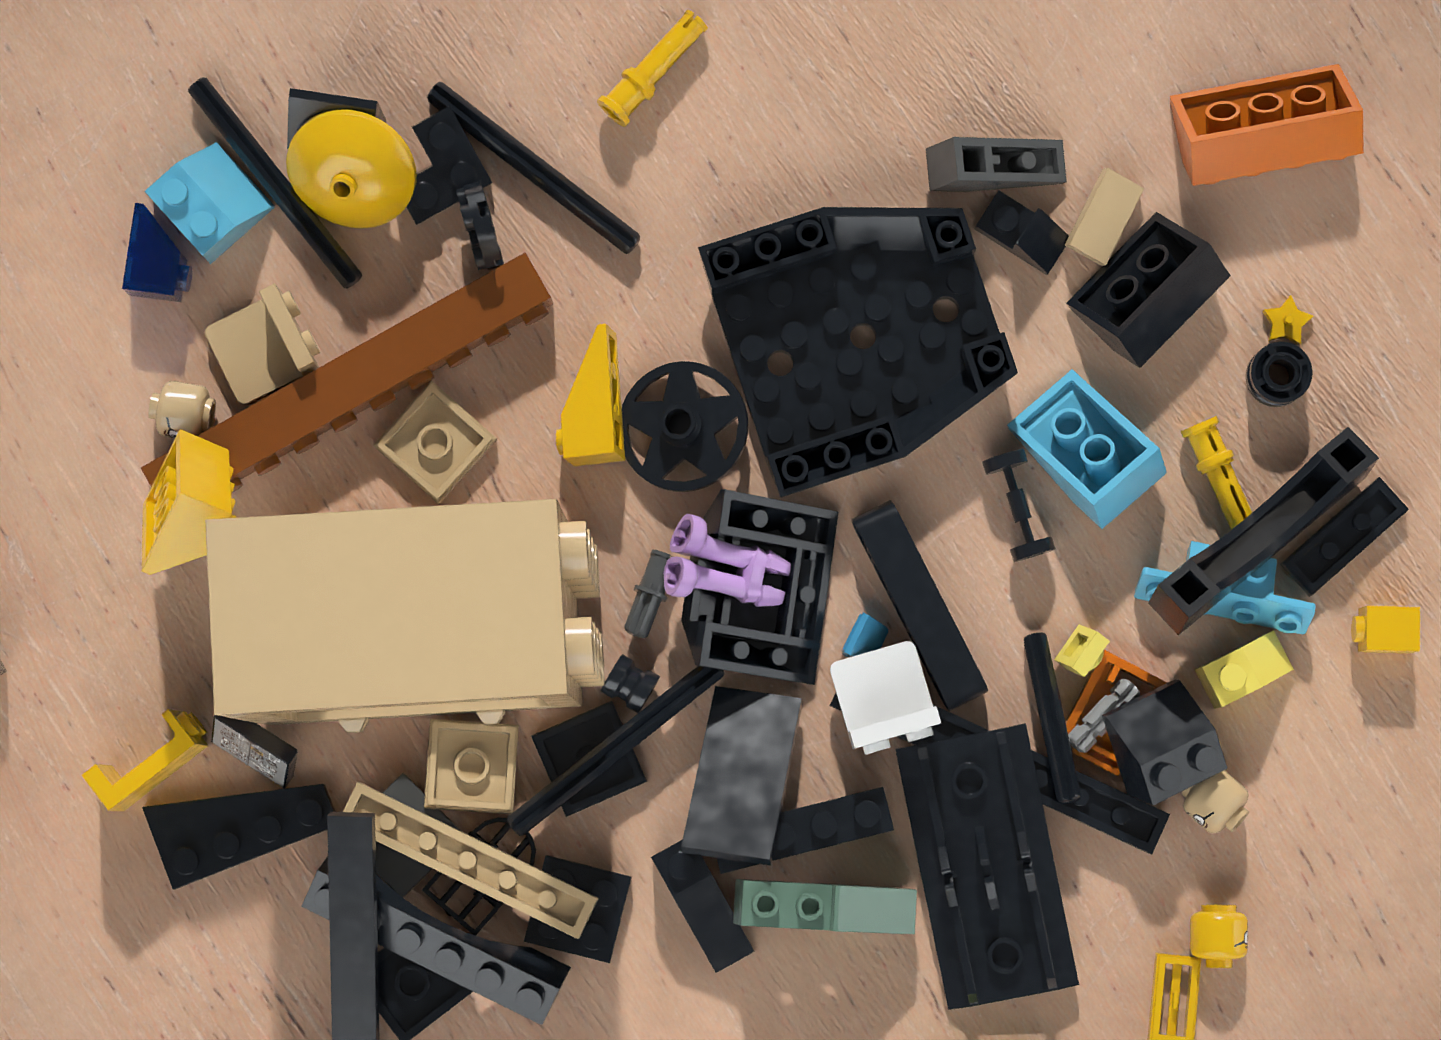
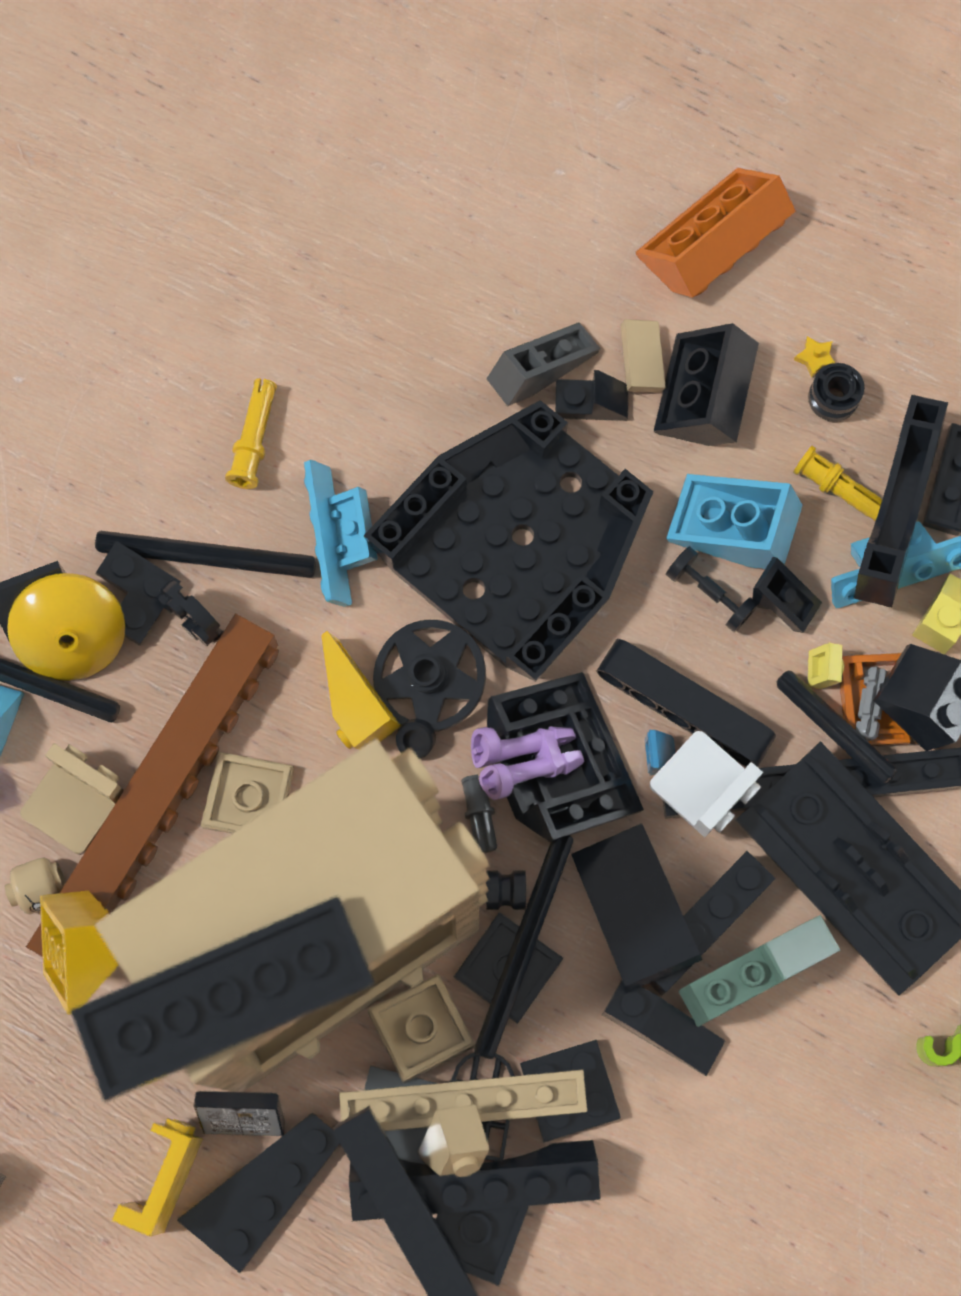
camera: 30 degrees left, 10 degrees down
(281, 656) = (221, 998): none -> black plate
(436, 893) = (455, 1142): none -> tan slope
(631, 482) = (417, 736): none -> black tile
(682, 221) = (338, 530): none -> medium azure bracket
(1087, 558) = (785, 596): none -> black slope

